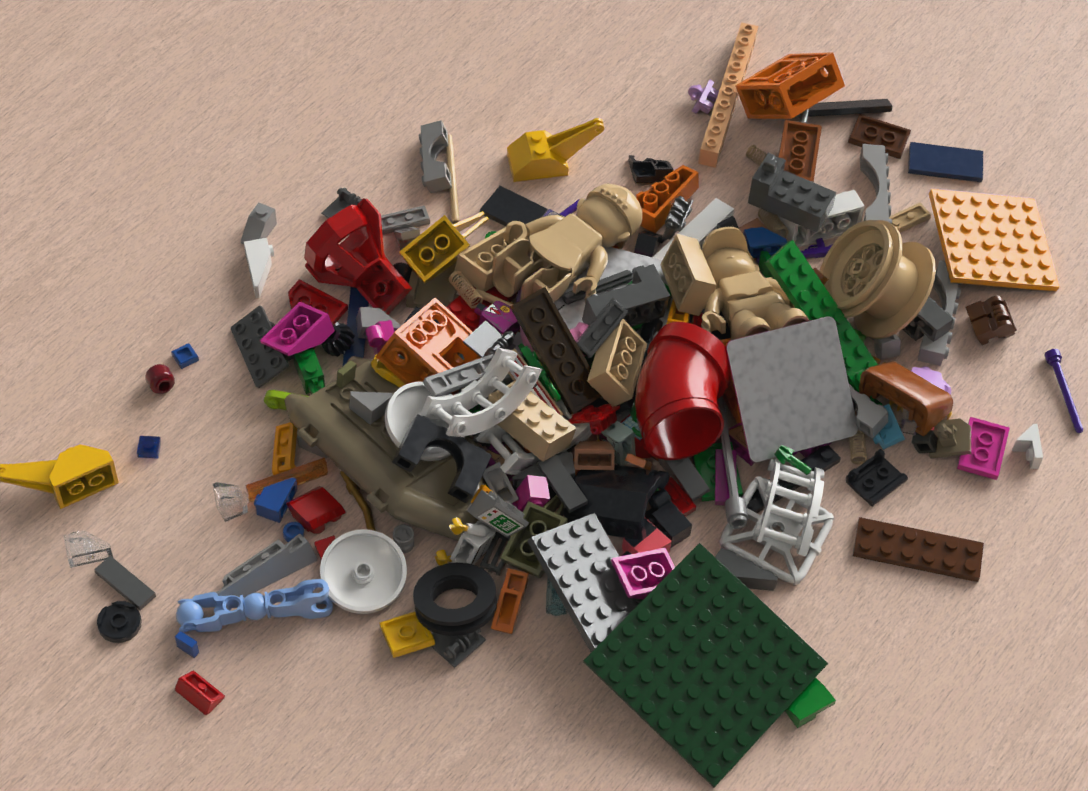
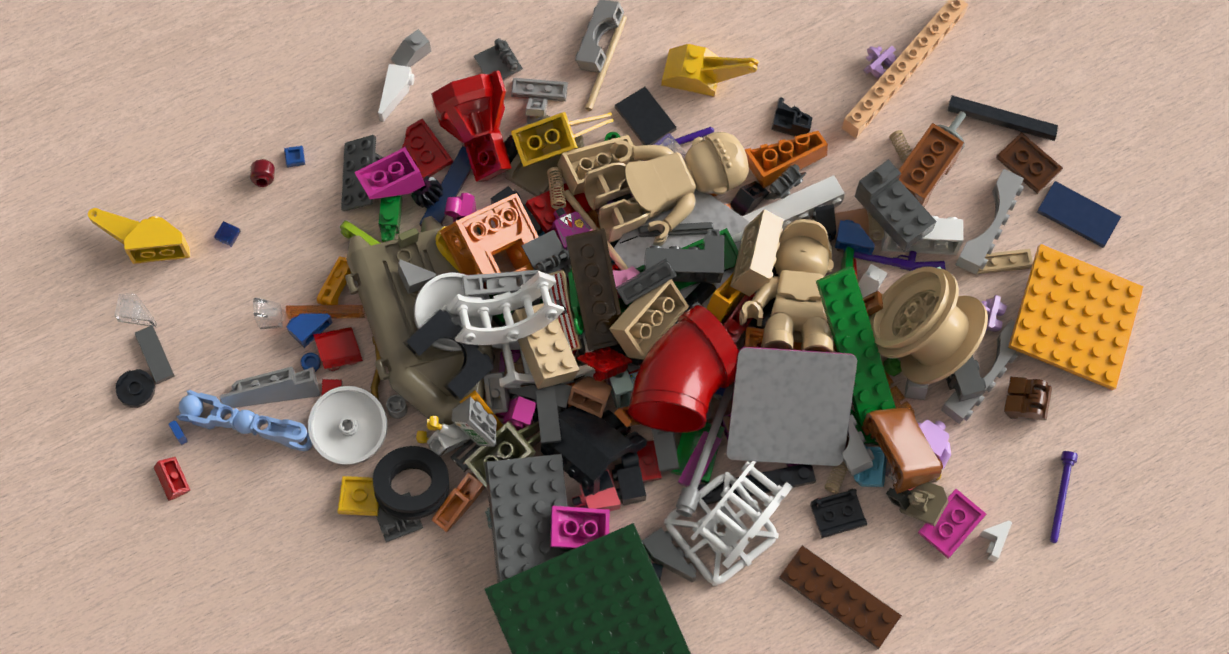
camera: 25 degrees right, 15 degrees up
(370, 316) = (465, 183): light grey slope -> none
(784, 454) = (759, 464): green bar -> none
(790, 86) = (960, 85): orange piece -> none

